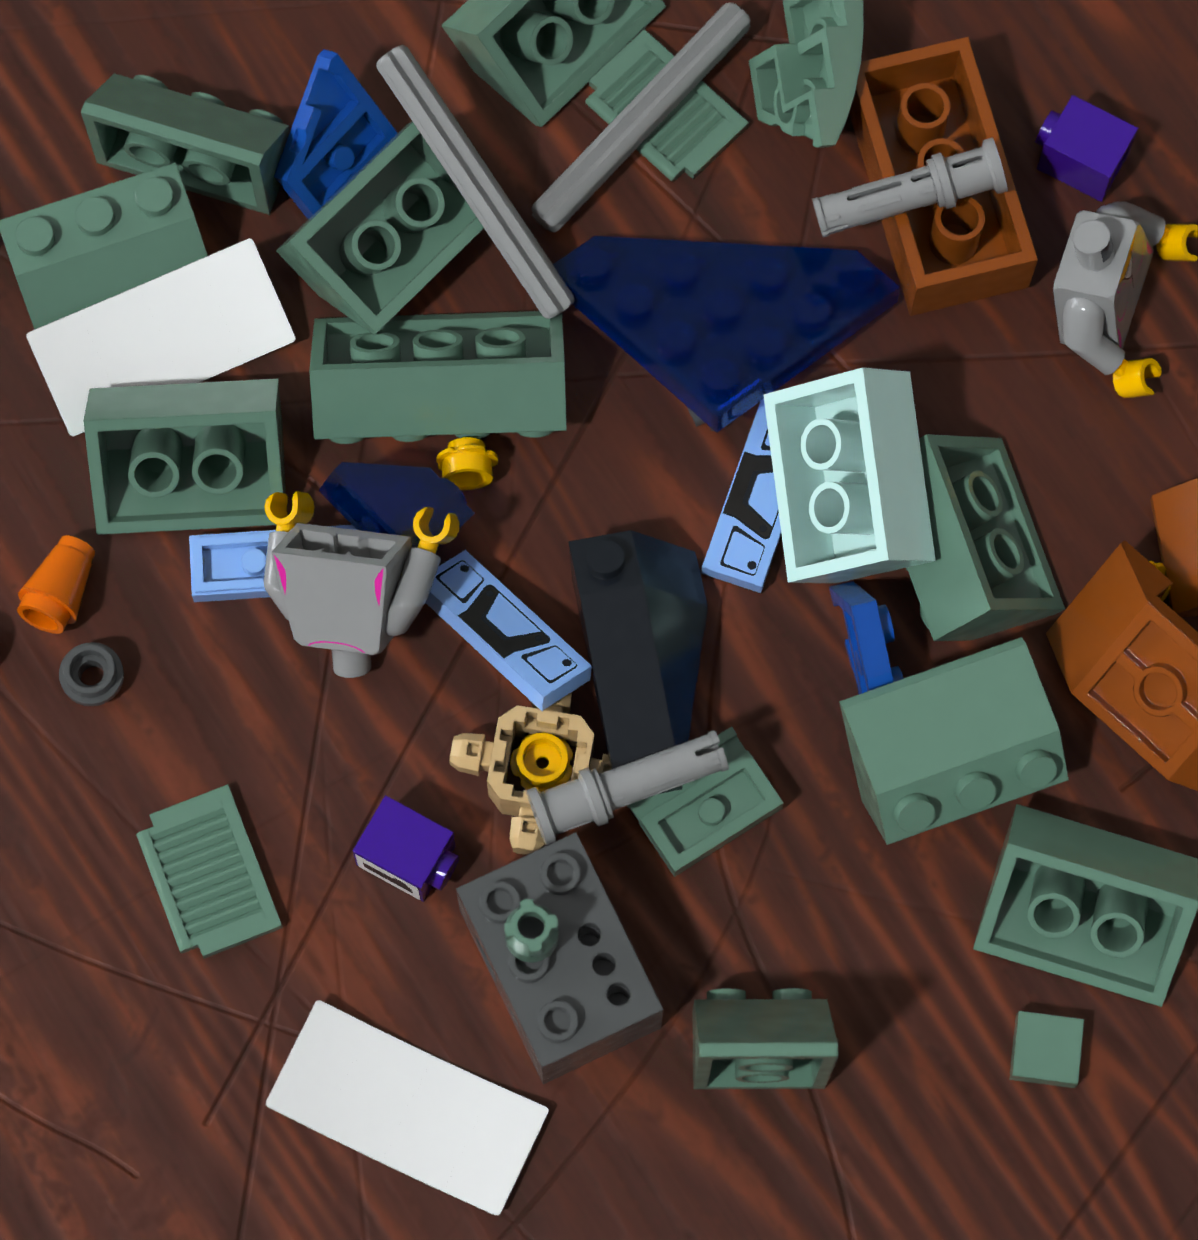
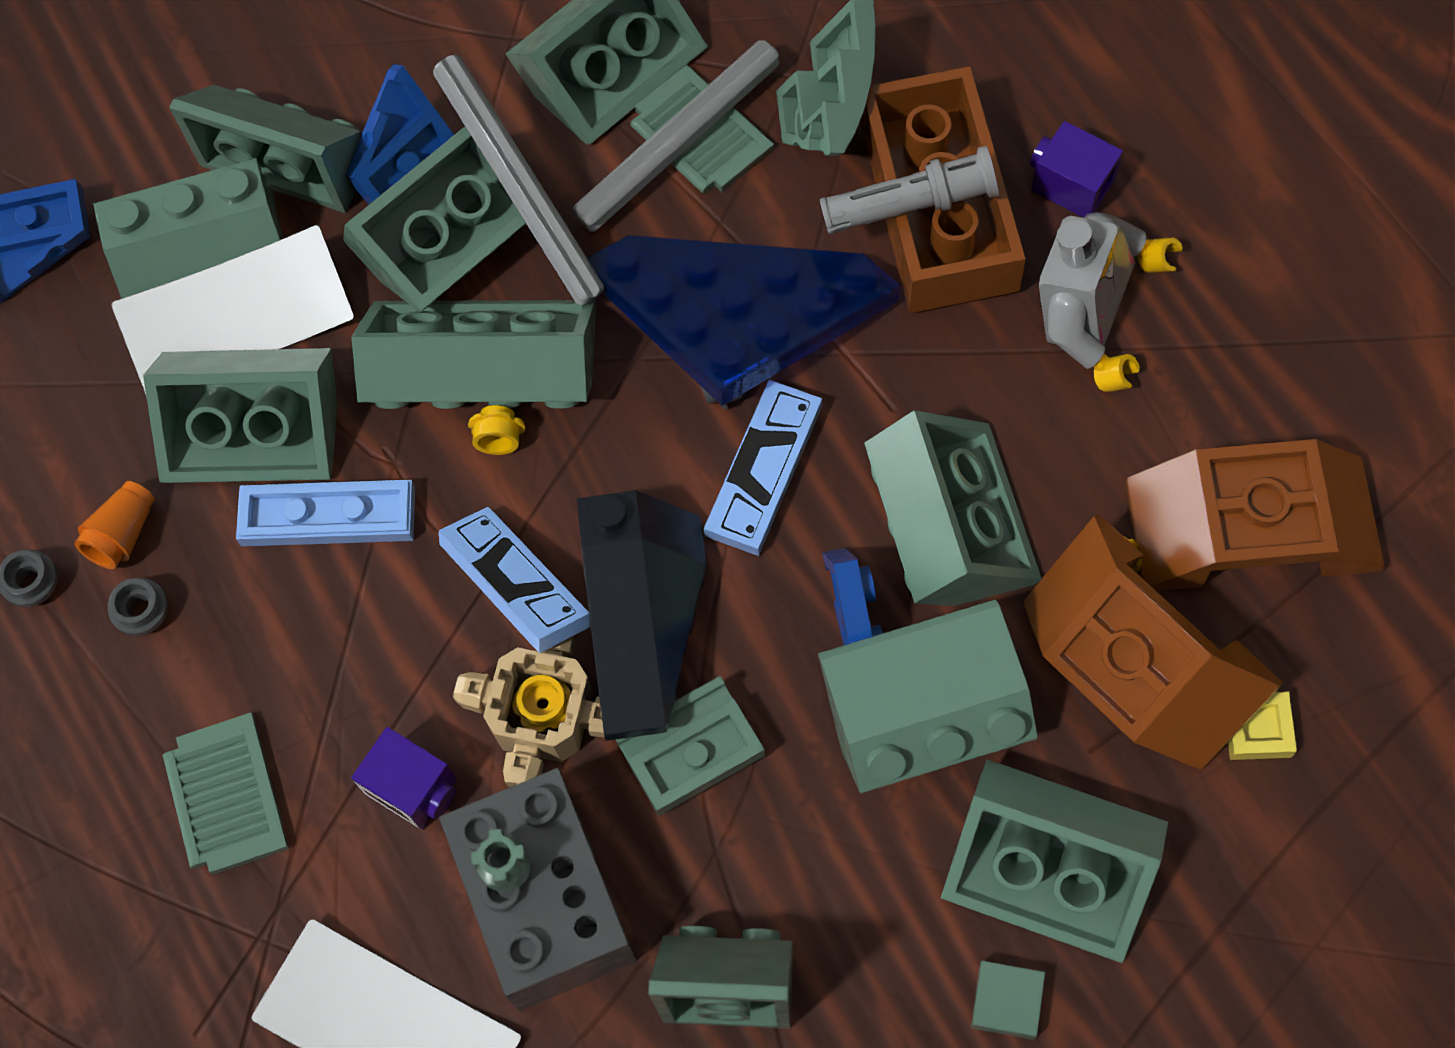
camera: 10 degrees right, 5 degrees down
(347, 584) = (370, 530): light grey torso -> none
(389, 497) = (427, 466): clear blue slope -> none
(597, 795) = (581, 733): light grey pin -> none
(849, 476) = (841, 447): light aqua brick -> none

